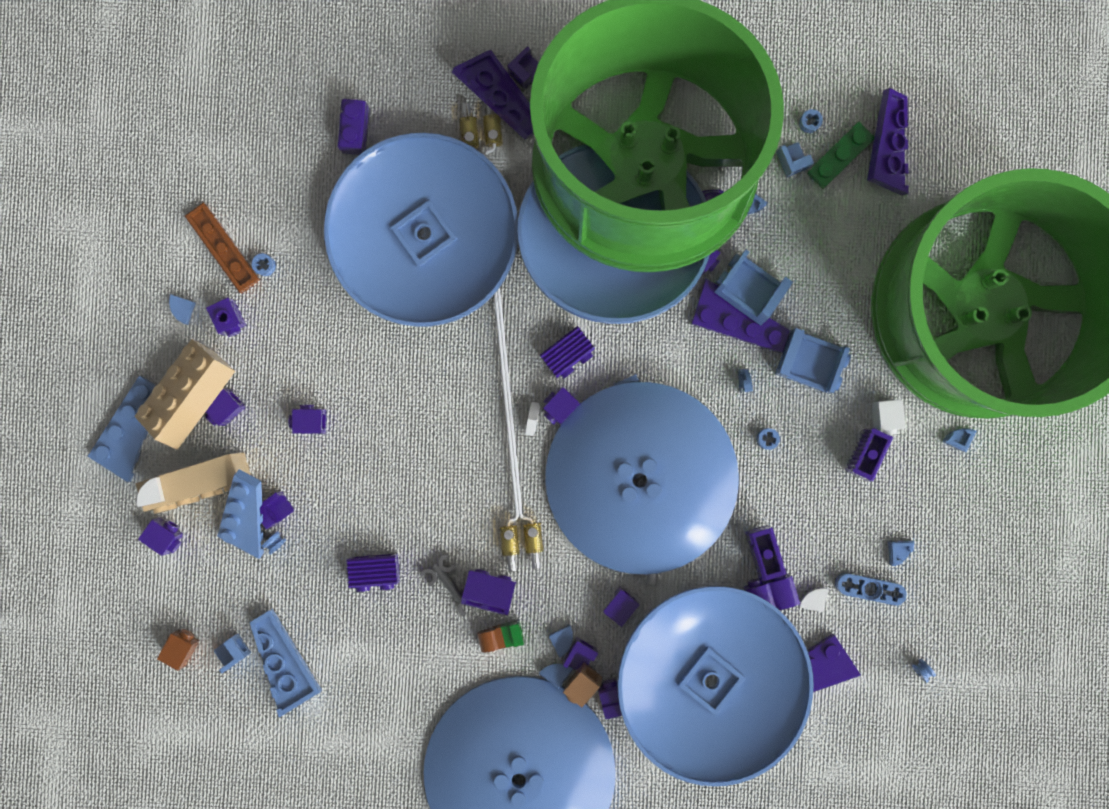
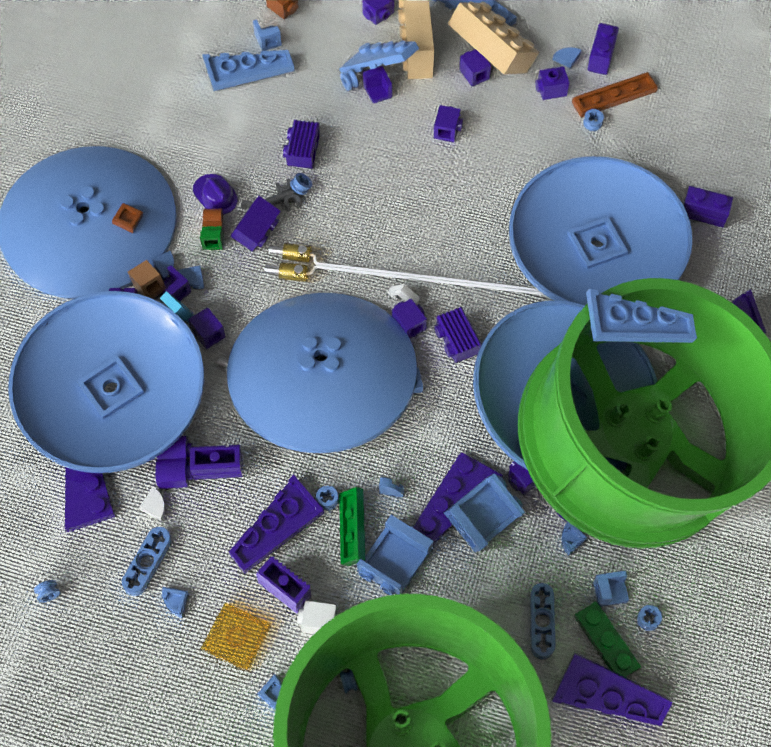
camera: 105 degrees right, 25 degrees down
(165, 269) = (603, 49): none -> dark purple brick
(429, 563) = (301, 184): none -> medium blue bush
(454, 648) = (215, 193): none -> dark purple piece
(520, 728) = (127, 217): none -> dark orange tile
(603, 157) = (636, 321): none -> medium blue wing
(612, 640) = (177, 306): none -> medium azure plate
(793, 407) = (352, 526): none -> green plate
(803, 475) = (282, 520): none -> dark purple wing
(852, 205) = (535, 639): none -> medium blue beam
(919, 485) = (236, 637): none -> clear yellow tile

